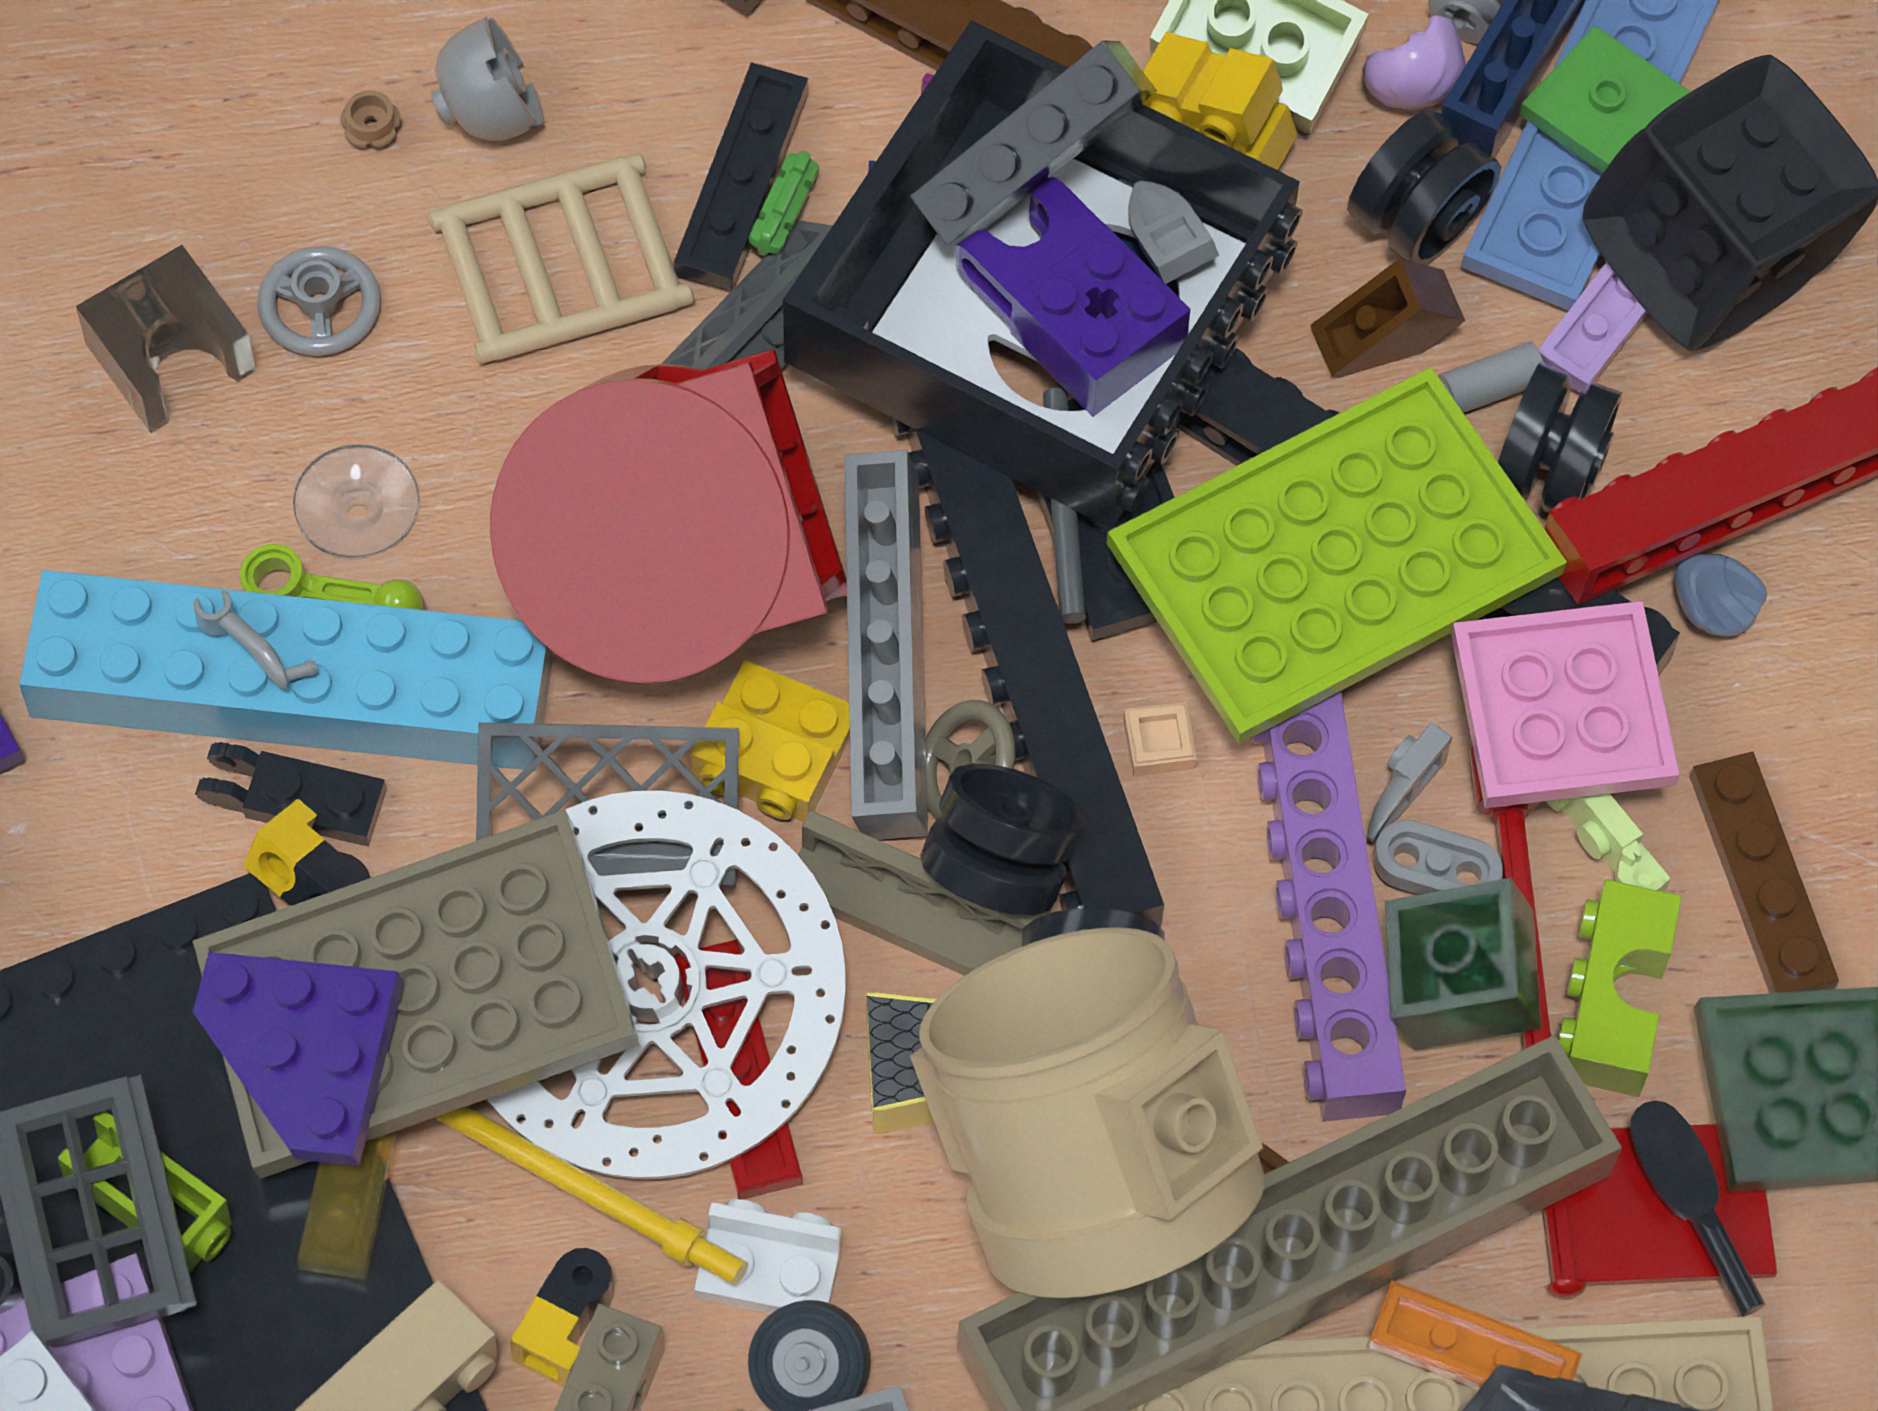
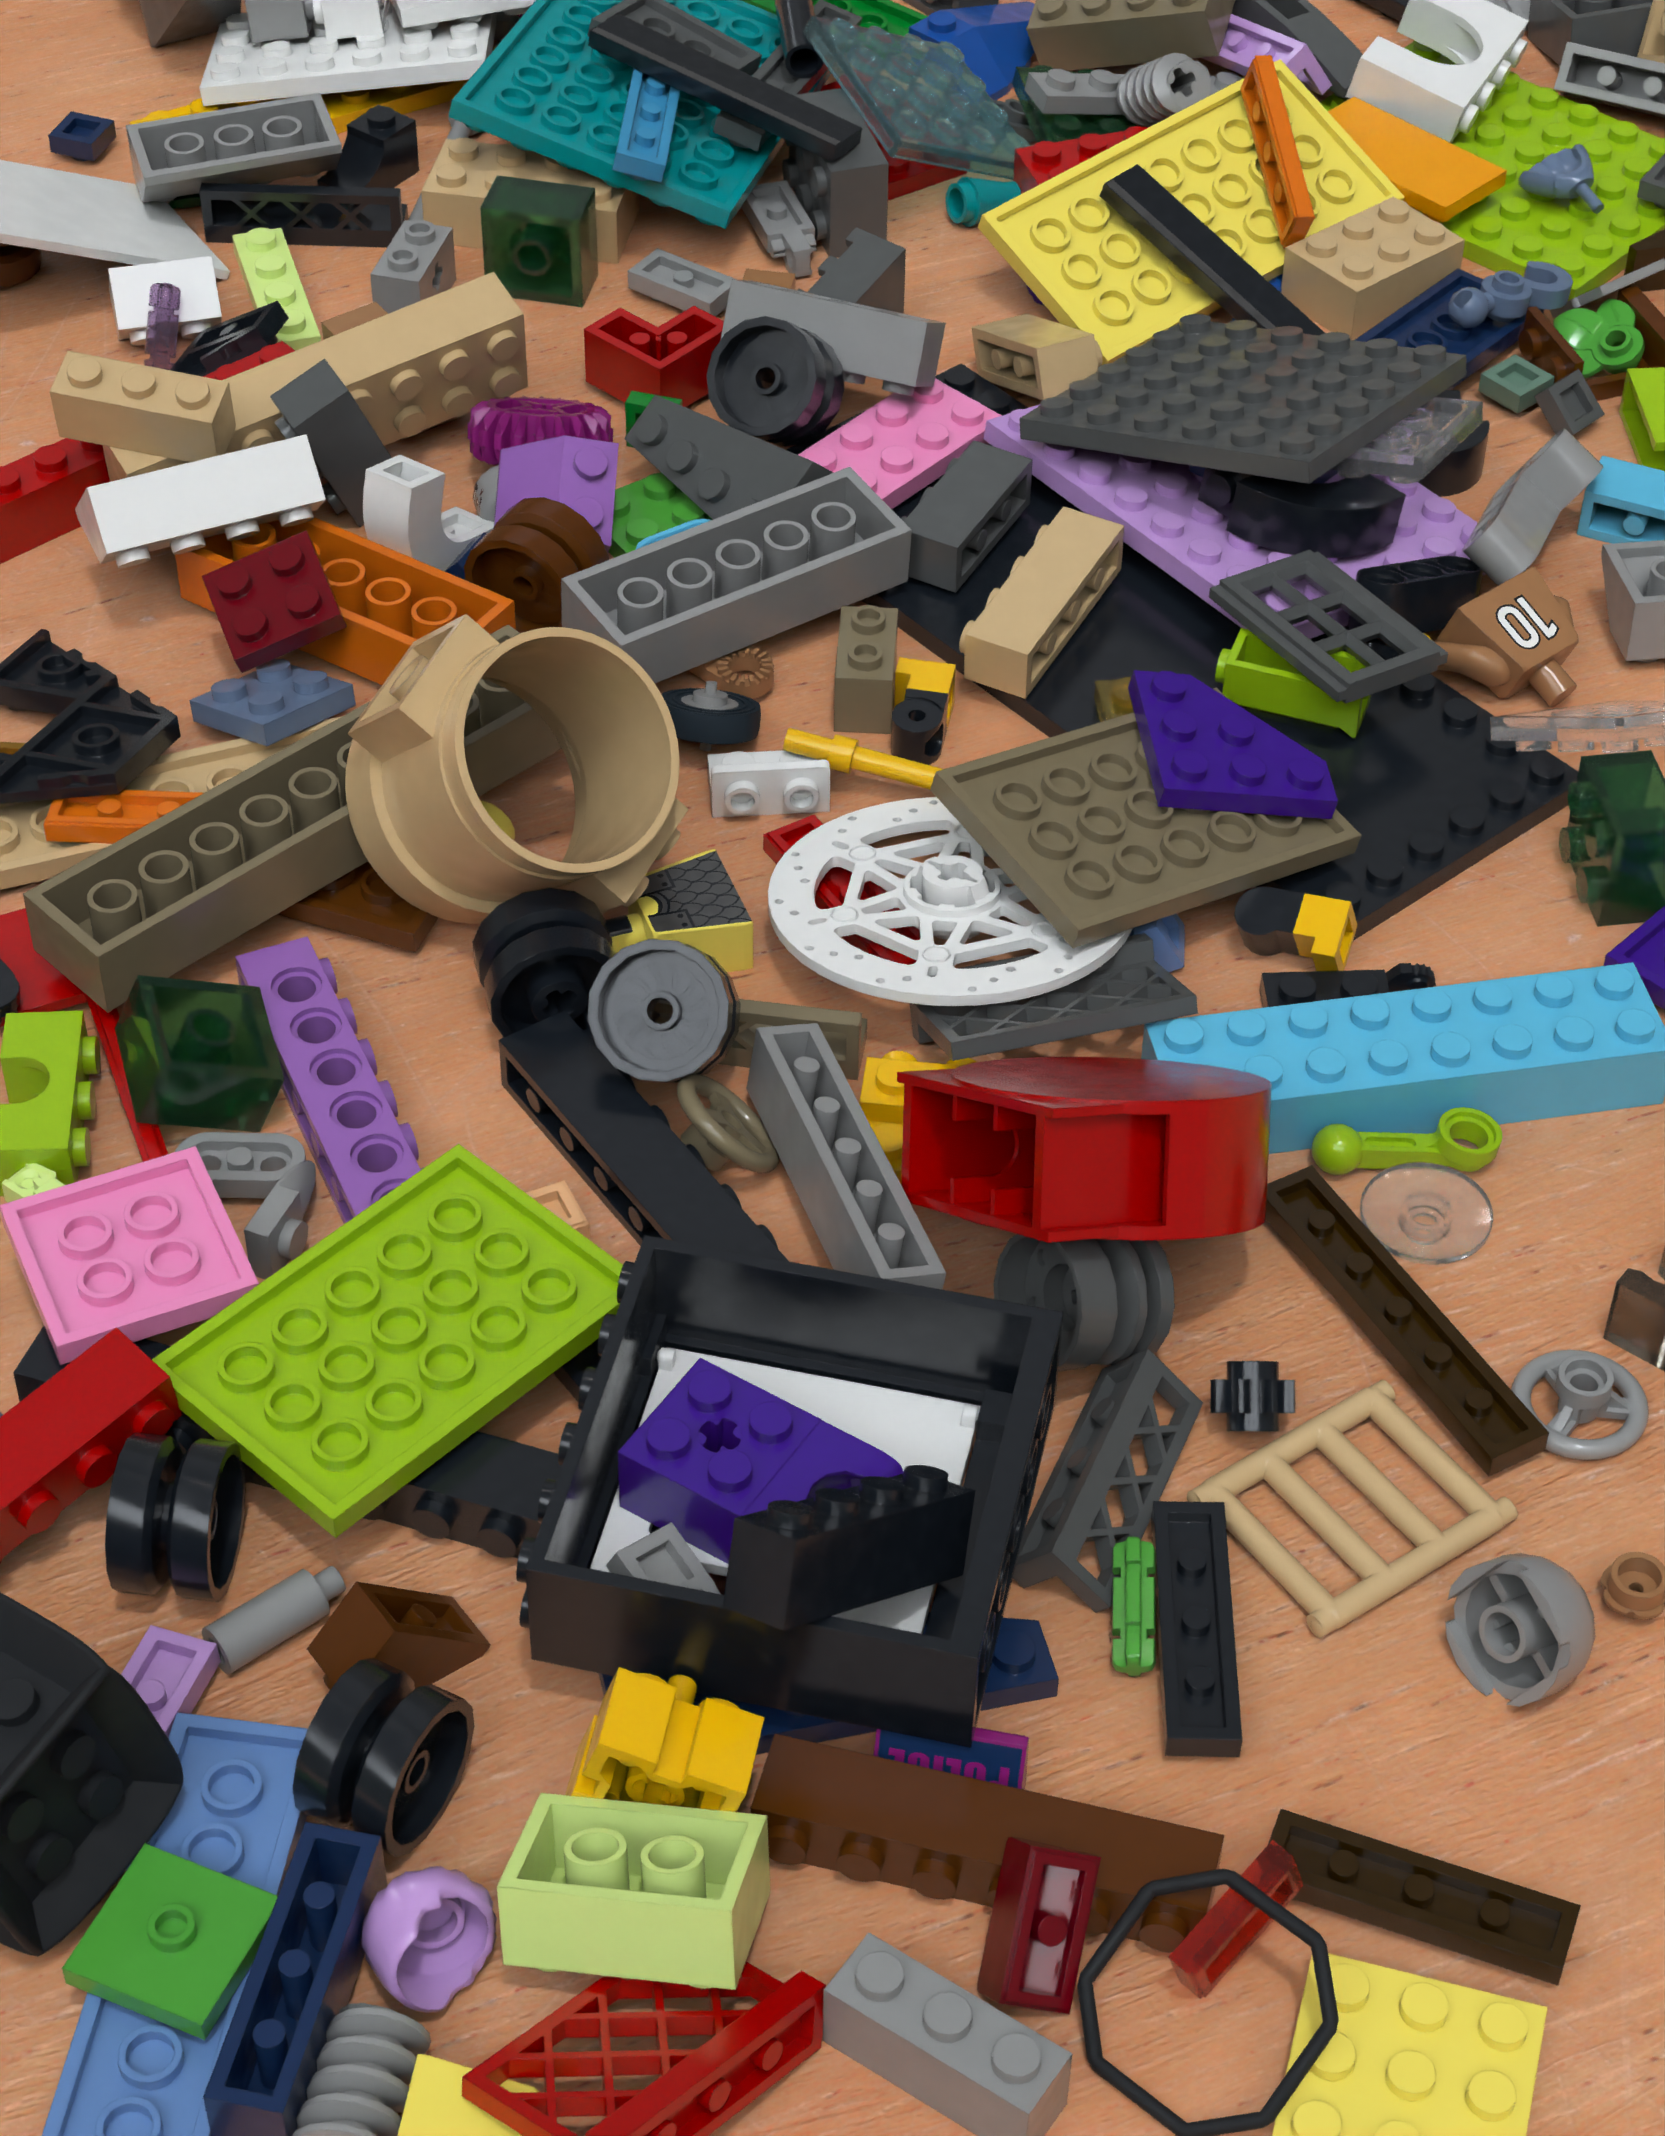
camera: 165 degrees right, 20 degrees down
(252, 641) = (1483, 1014): light grey piece -> none
(434, 414) = (1403, 1322): none -> dark brown plate
(604, 334) = (1253, 1396): none -> black gear

